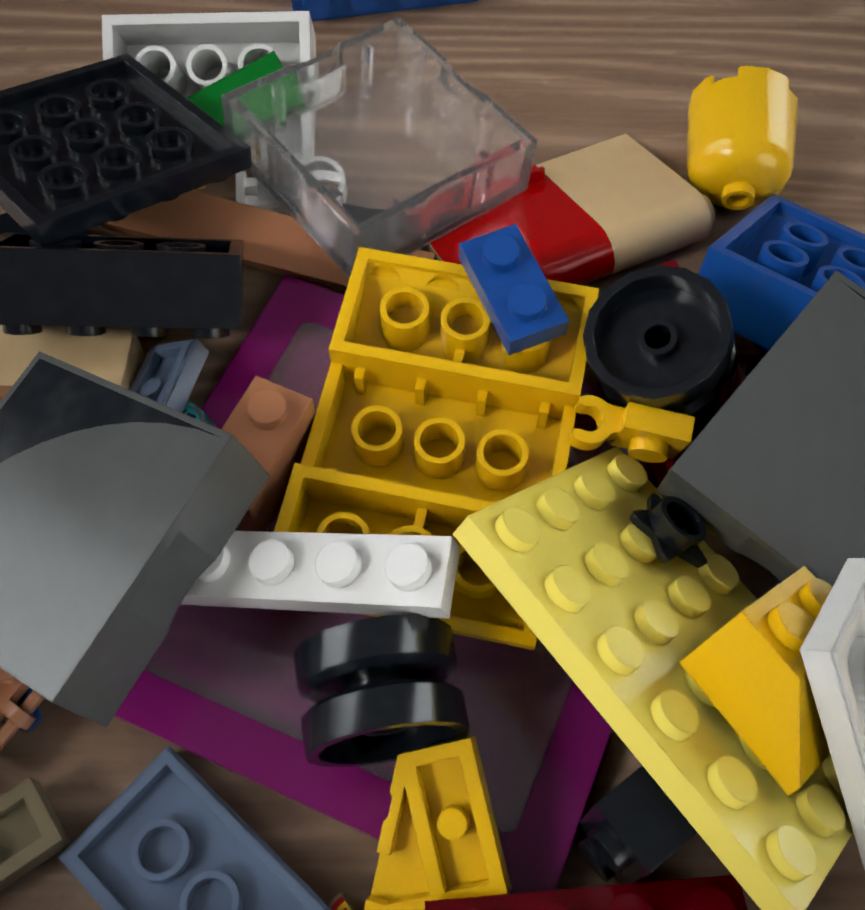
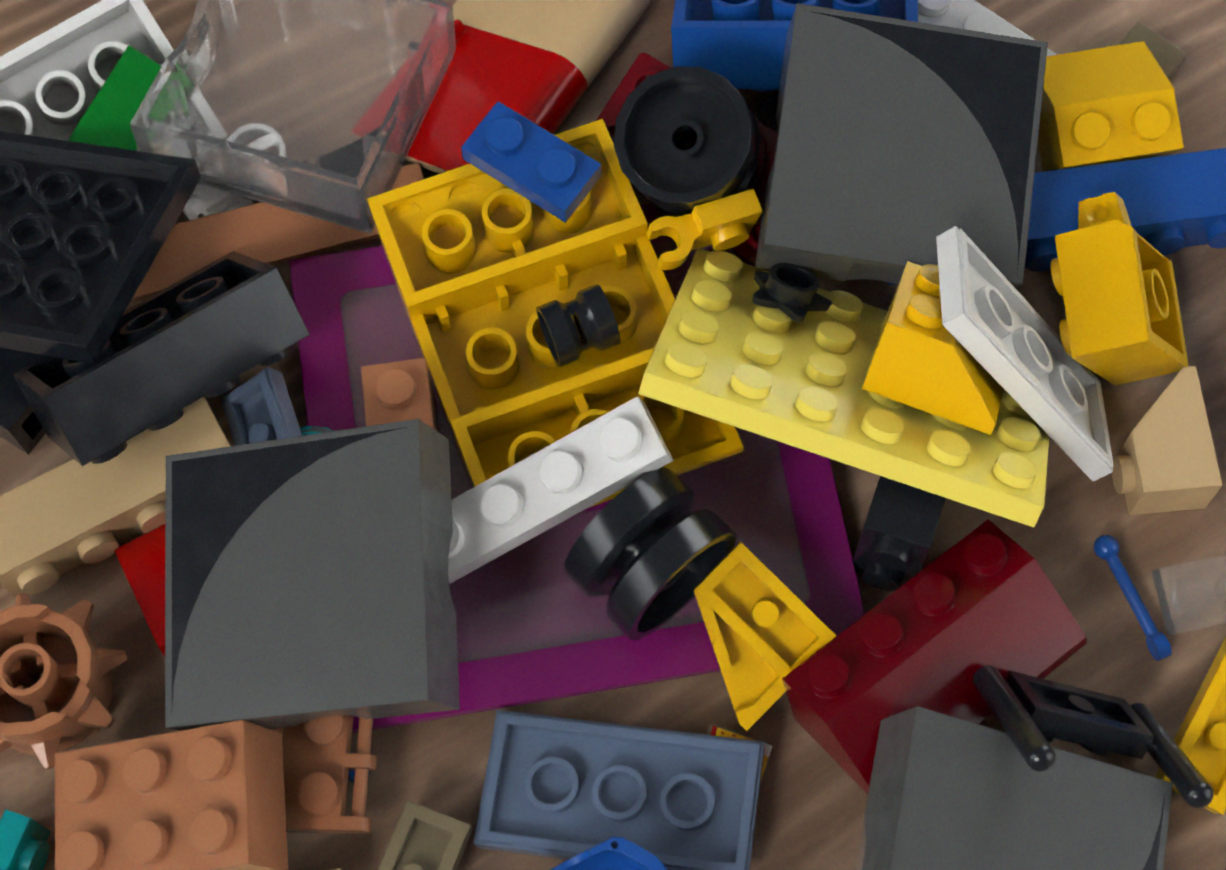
camera: 30 degrees left, 5 degrees up
(472, 451) = (591, 322): none -> black wheel

